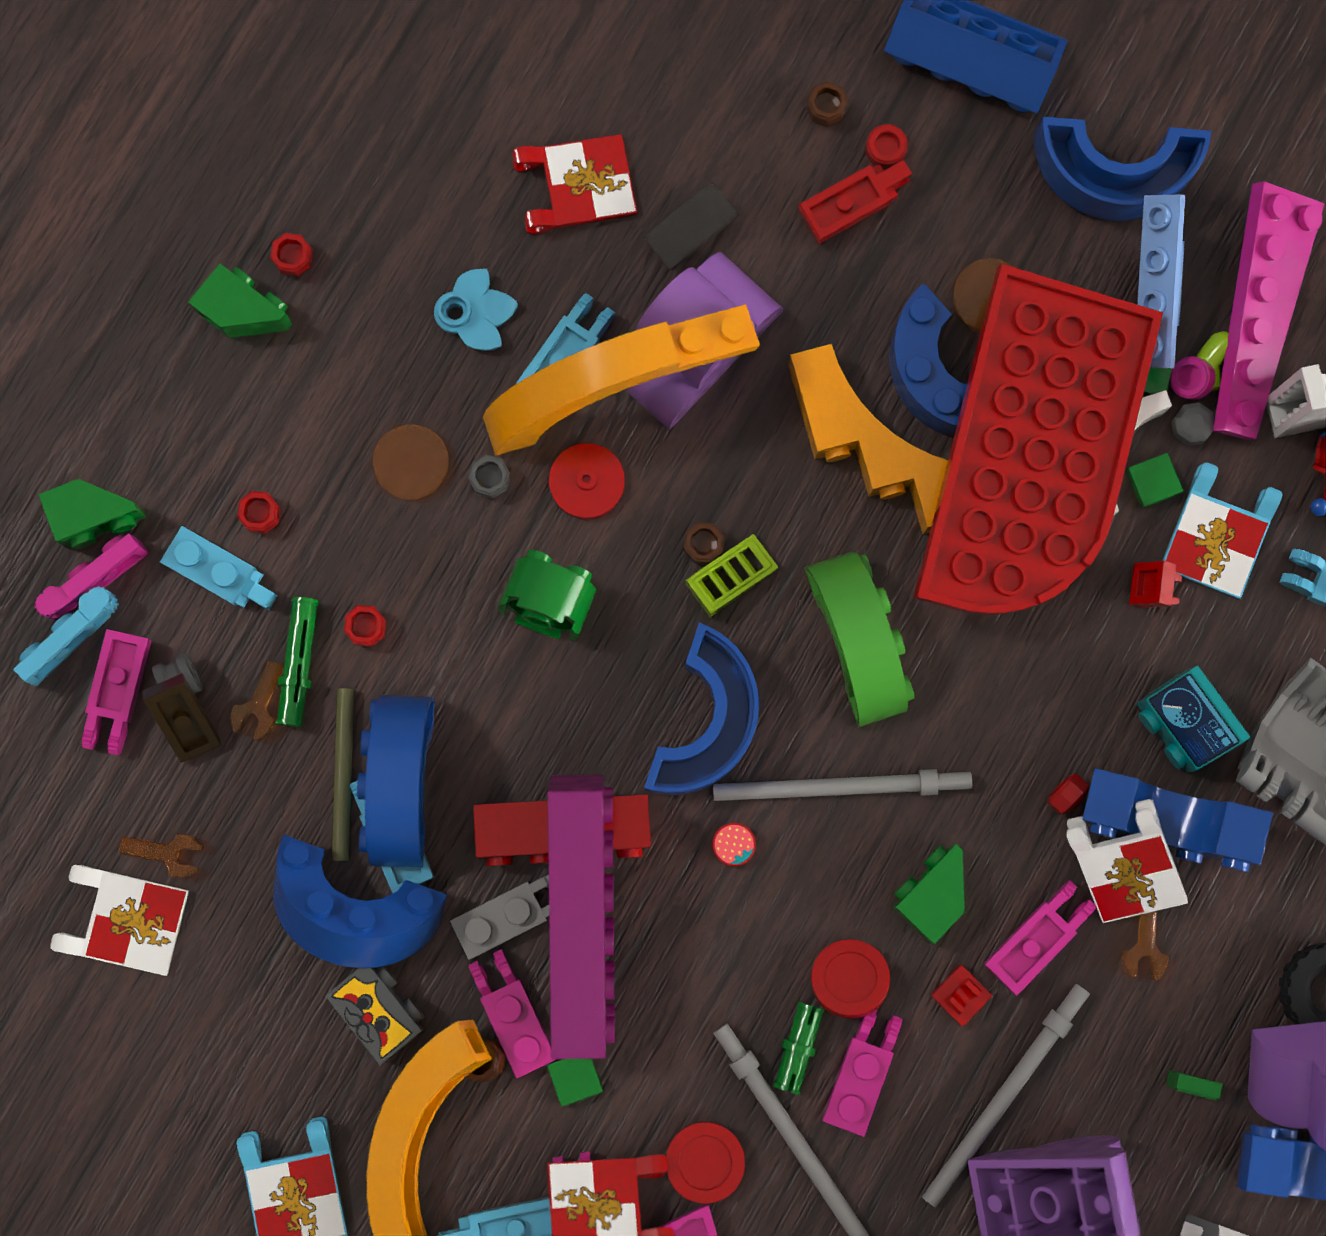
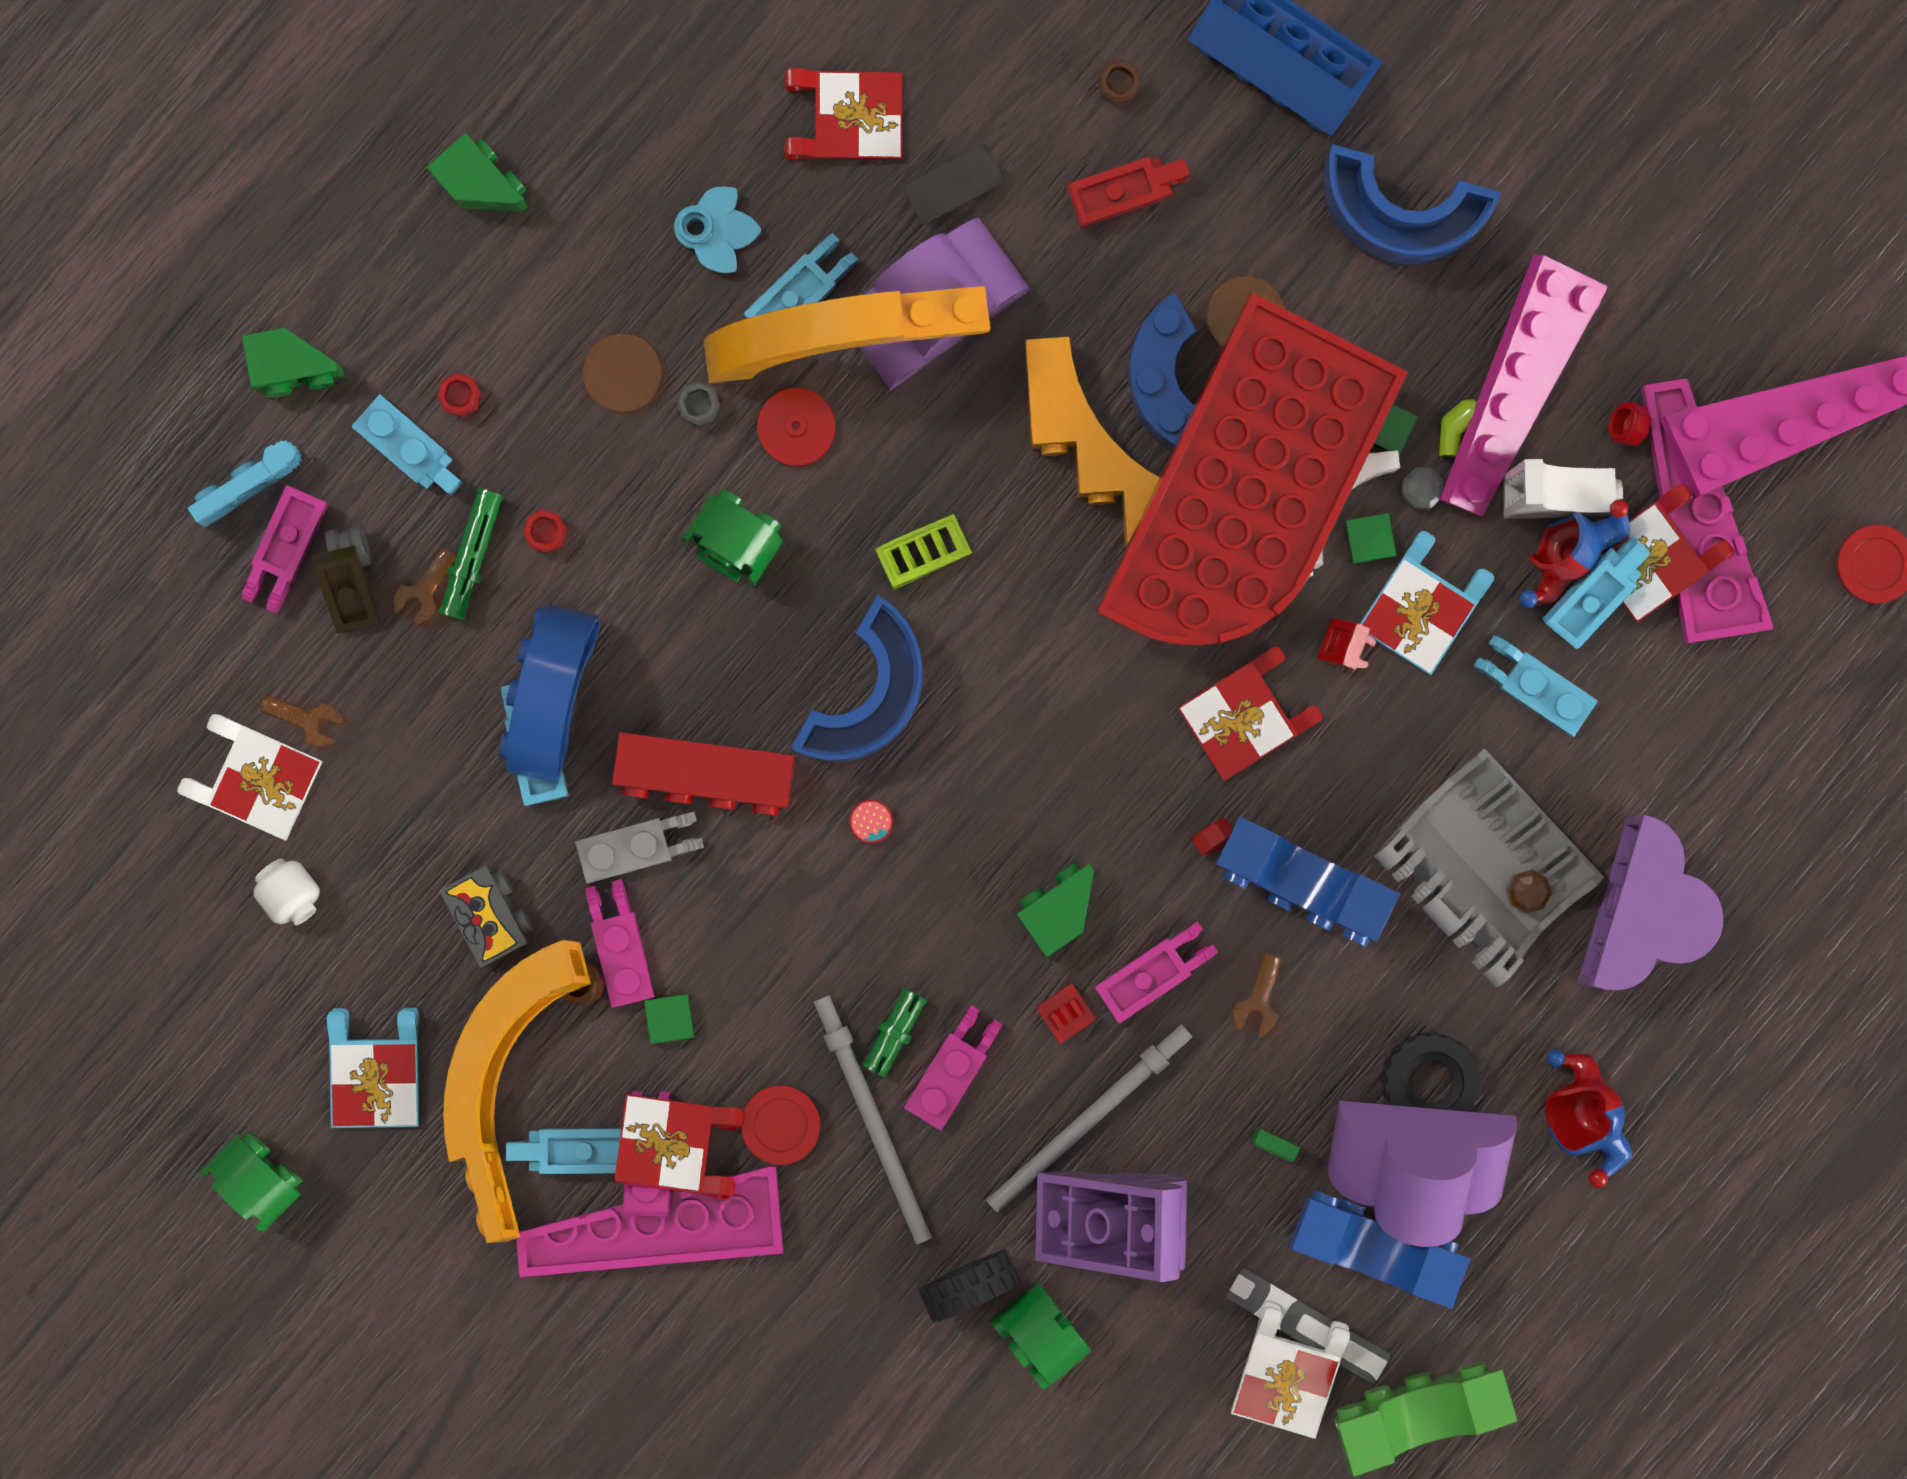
camera: 10 degrees right, 5 degrees up
(117, 558) = (310, 413): dark pink hinge -> none
(175, 1026) = (286, 892): none -> white head
(291, 254) = (540, 135): red tile -> none
(343, 774) = (496, 675): olive bar -> none
(347, 928) = (471, 829): blue brick -> none
(577, 920) = (700, 860): magenta brick -> none
(703, 543) = (901, 513): reddish brown tile -> none
(850, 978) = (959, 975): red piece -> none
(862, 636) = (1038, 640): bright green brick -> none
(886, 146) = (1171, 138): red tile -> none
(926, 782) = (1075, 797): light grey bar -> none
(1069, 675) = (1241, 718): none -> flag
(1131, 871) = (1254, 925): flag -> none
(1162, 269) = (1419, 330): light blue bracket -> none
(1191, 720) = (1348, 788): slope -> none
(1192, 378) = (1431, 441): dark pink tile -> none

